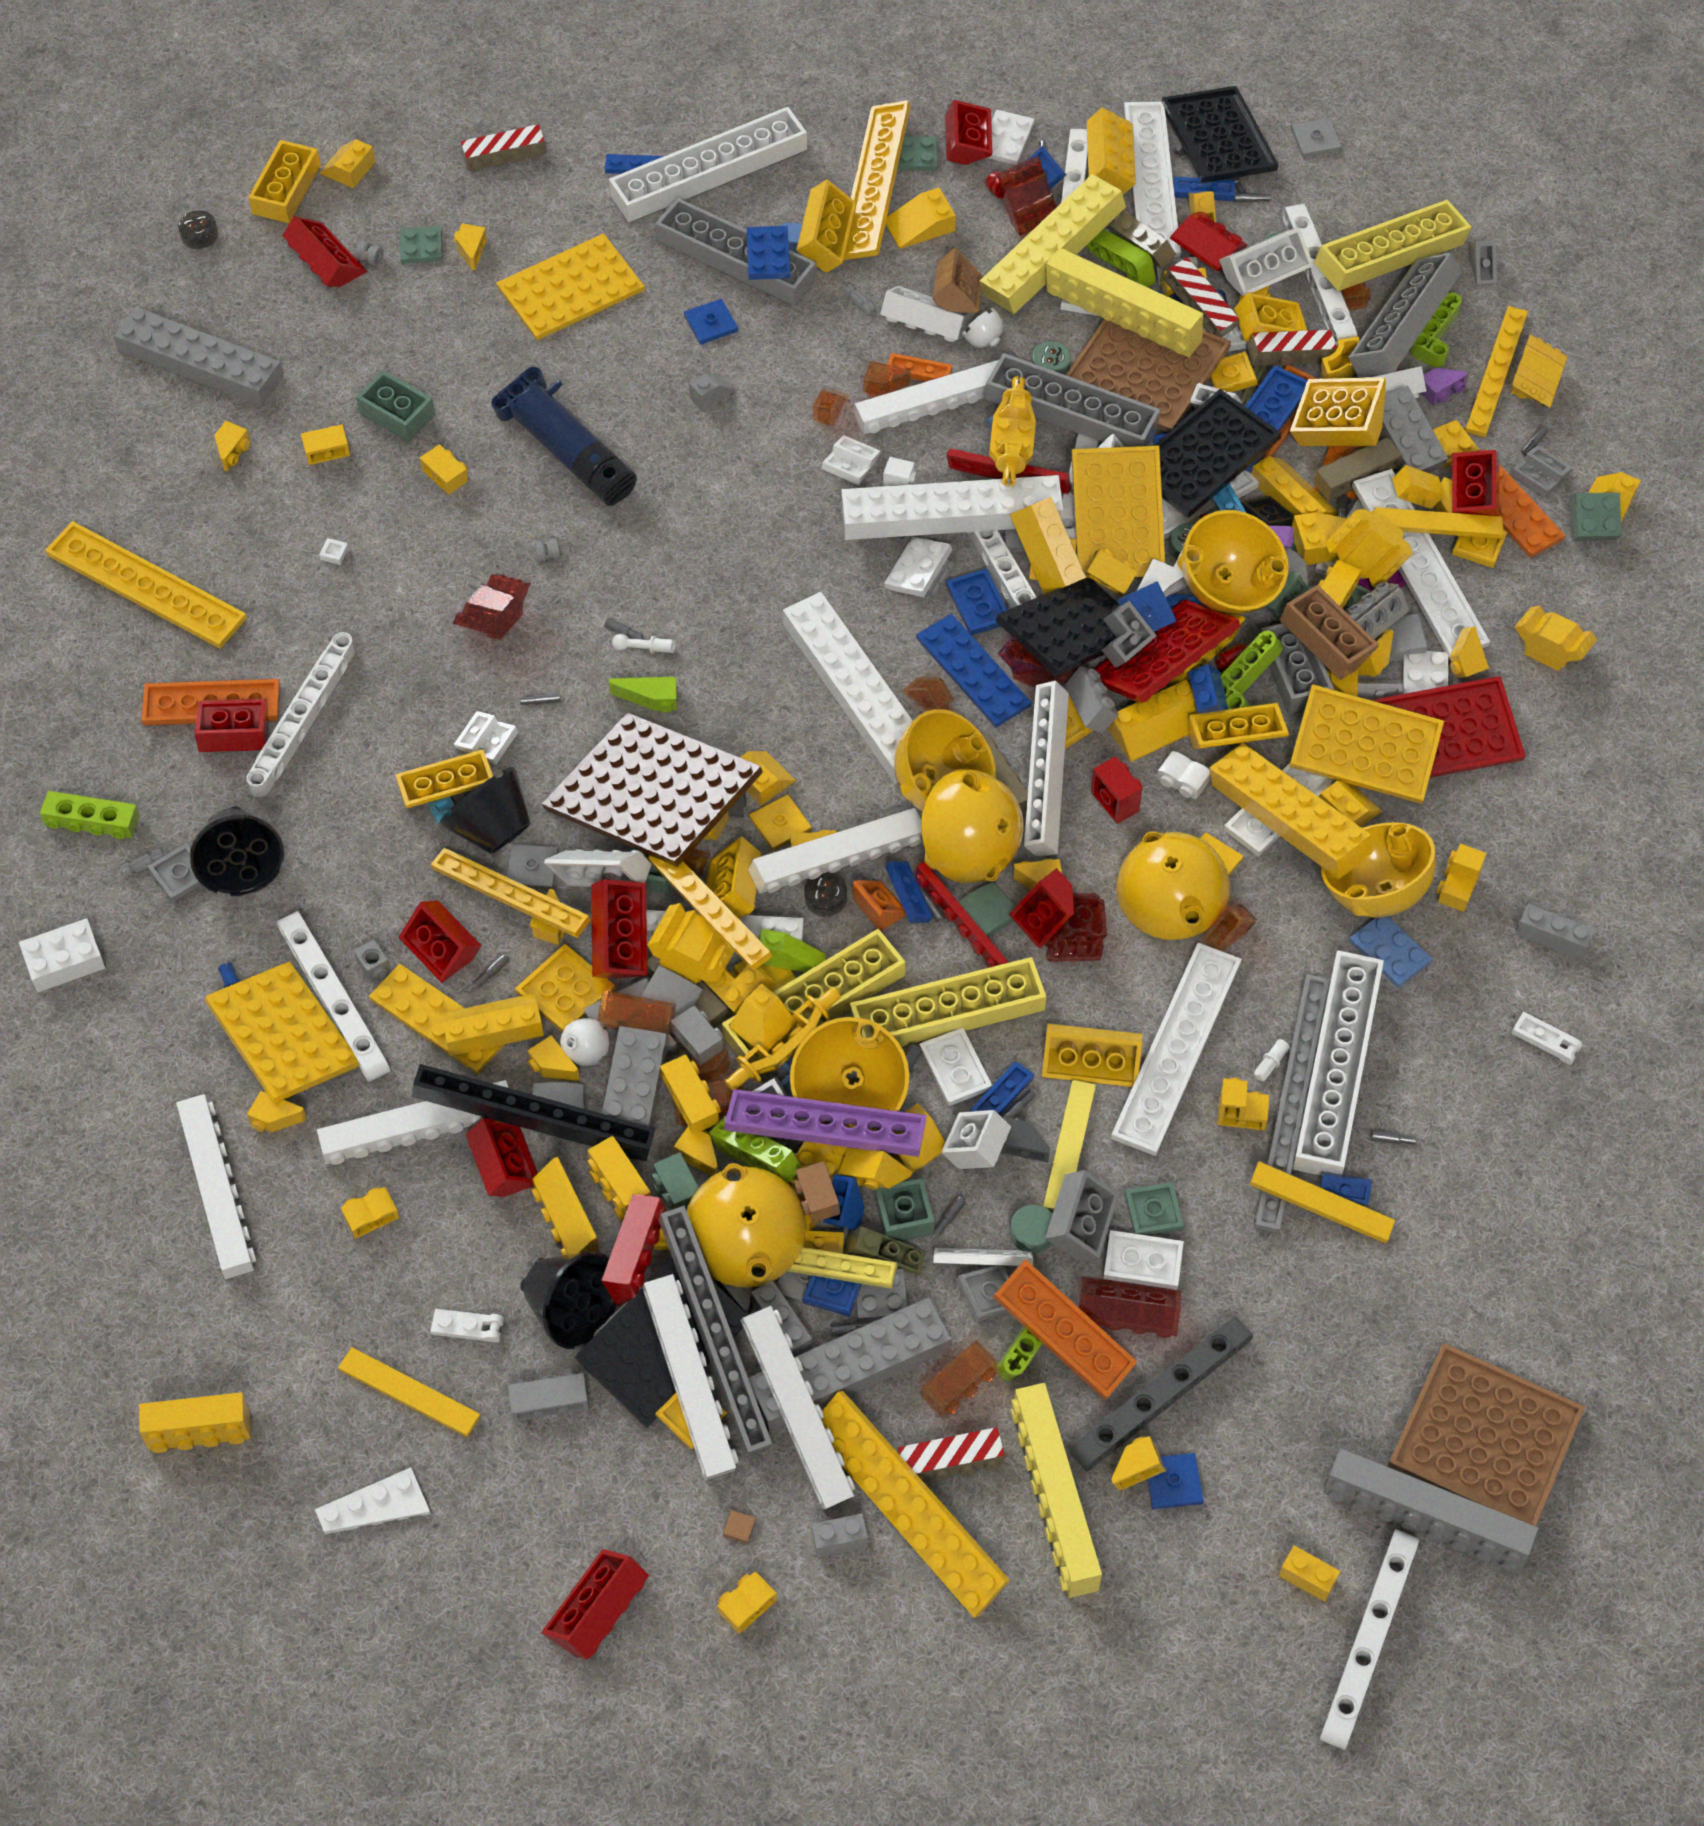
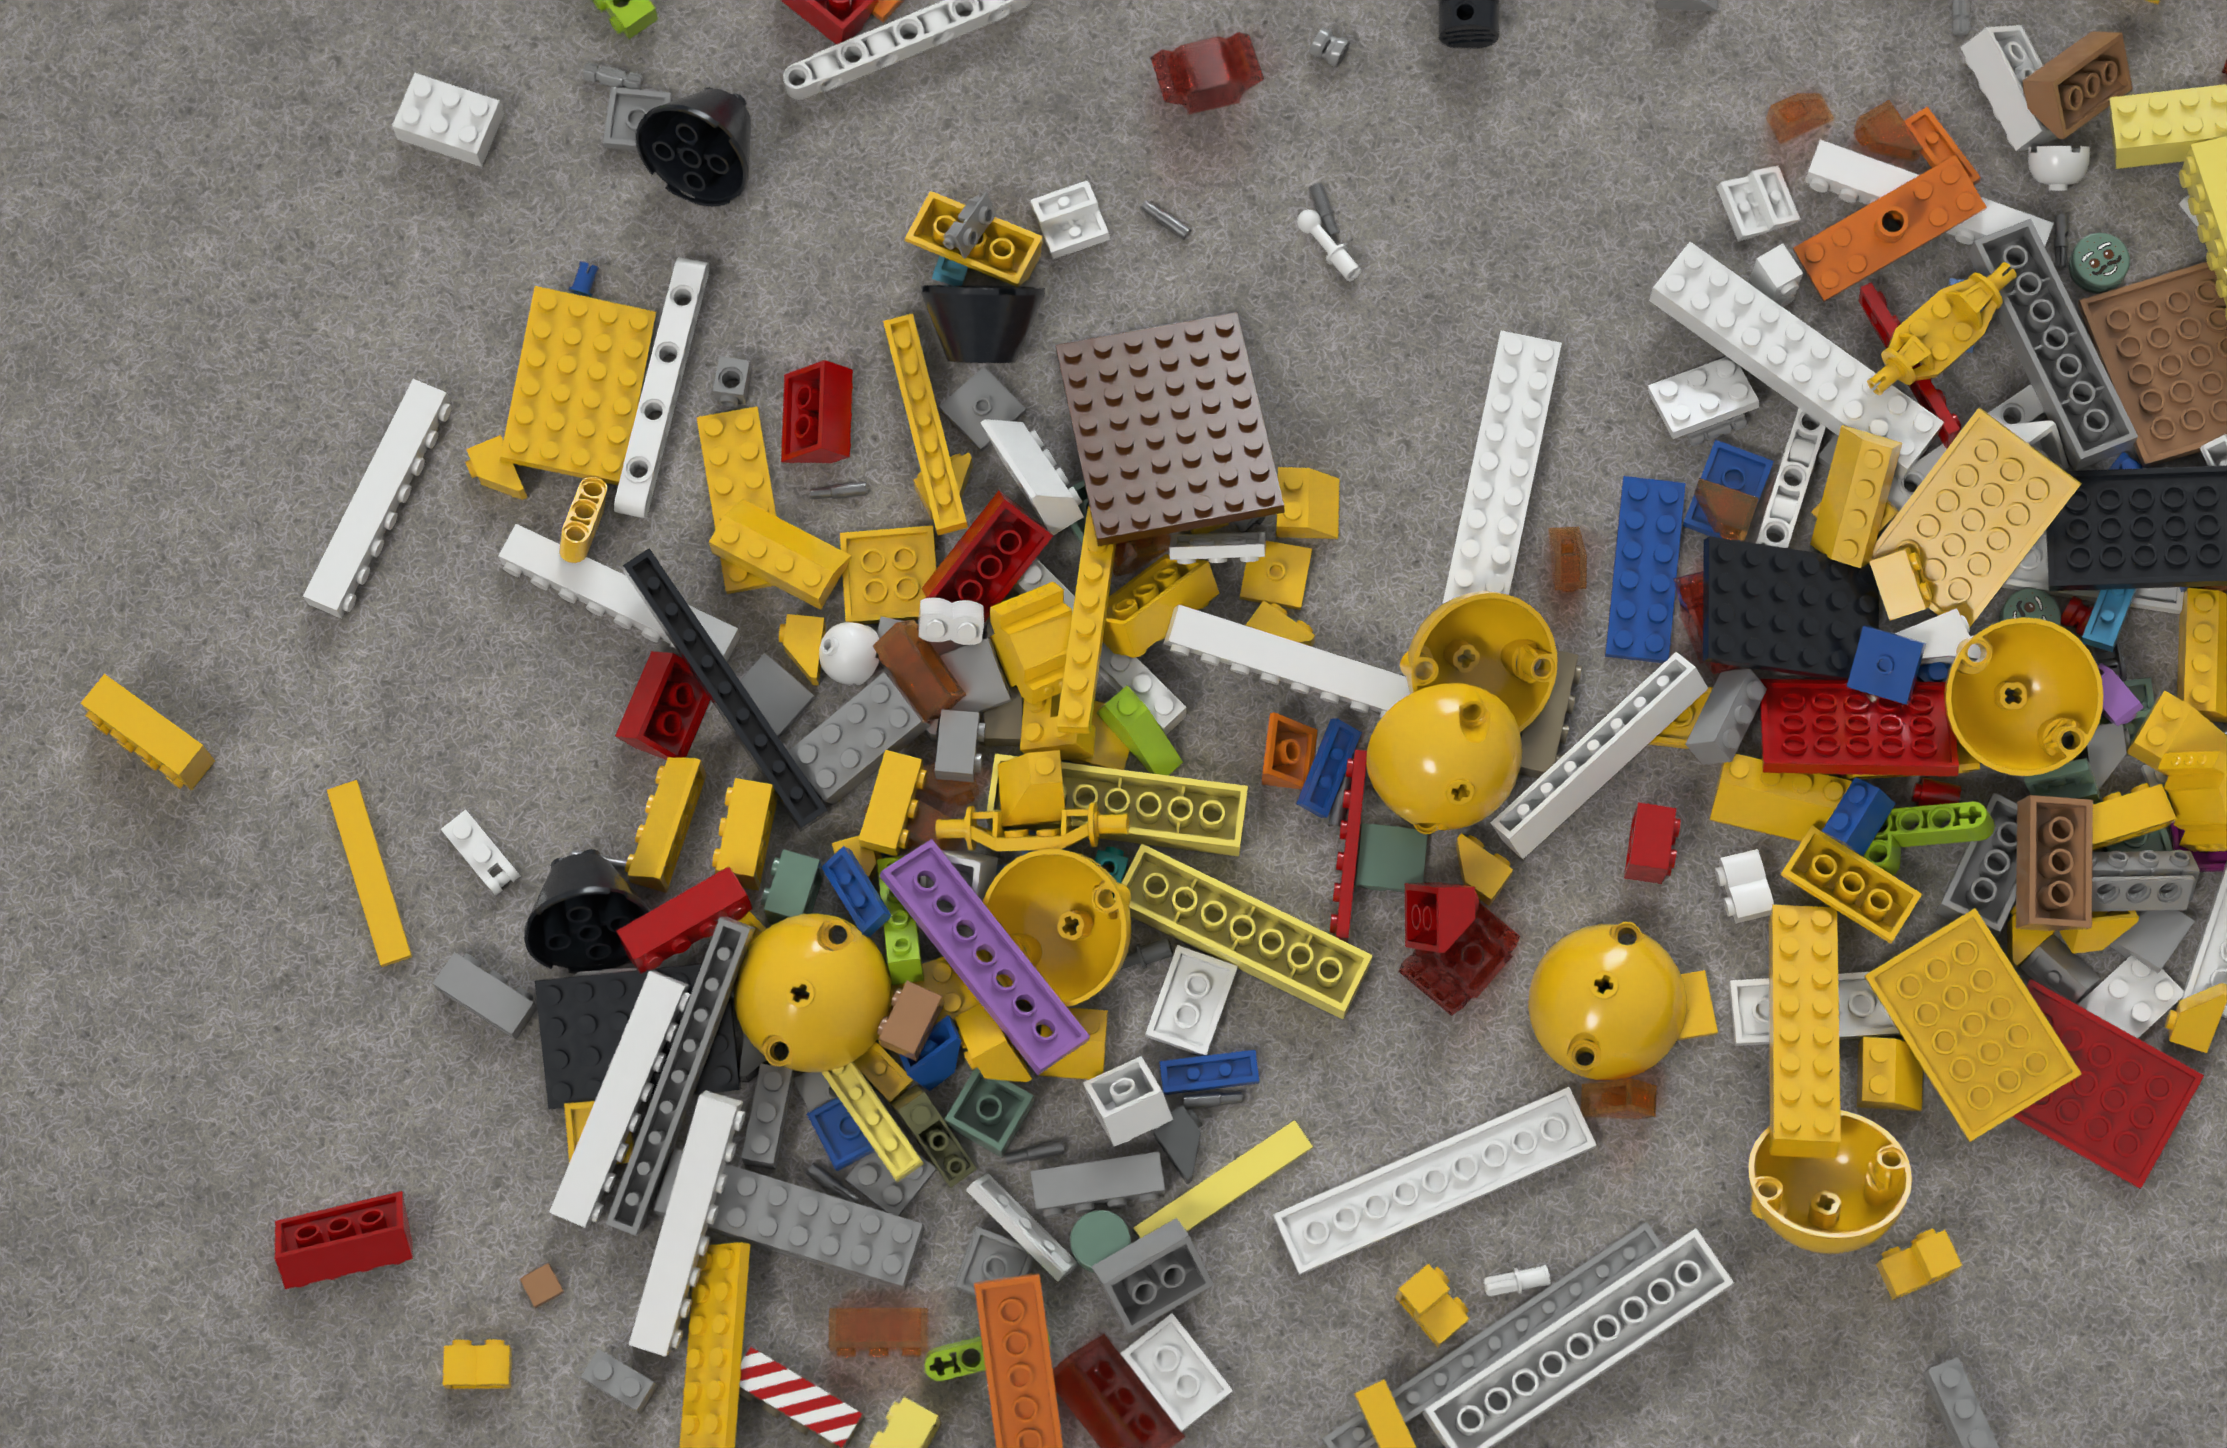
camera: 45 degrees right, 15 degrees up
(356, 1095) = (583, 519): none -> yellow beam
(369, 1212) = (493, 653): yellow brick -> none
(383, 1501) = (250, 962): white wing -> none
(437, 770) = (976, 218): none -> light grey hinge
(630, 972) = (955, 621): none -> white brick
(649, 692) = (1283, 313): lime slope -> none
(717, 1152) = (856, 891): none -> blue plate
(739, 826) = (1217, 547): none -> white plate
(825, 894) = (1242, 698): clear smoke head -> none
(933, 415) = (1862, 244): none -> orange plate
(986, 603) = (1726, 509): none -> clear orange slope
(1001, 1200) = (1098, 1183): none -> light grey brick
(1092, 1055) = (1339, 1111): yellow slope -> none
(1131, 634) = (1835, 683): light grey brick -> none
(1154, 1209) = (1238, 1330): sand green plate -> none
(1269, 511) = (2150, 657): black plate -> none
(1388, 942) = (1766, 1275): medium blue plate -> none

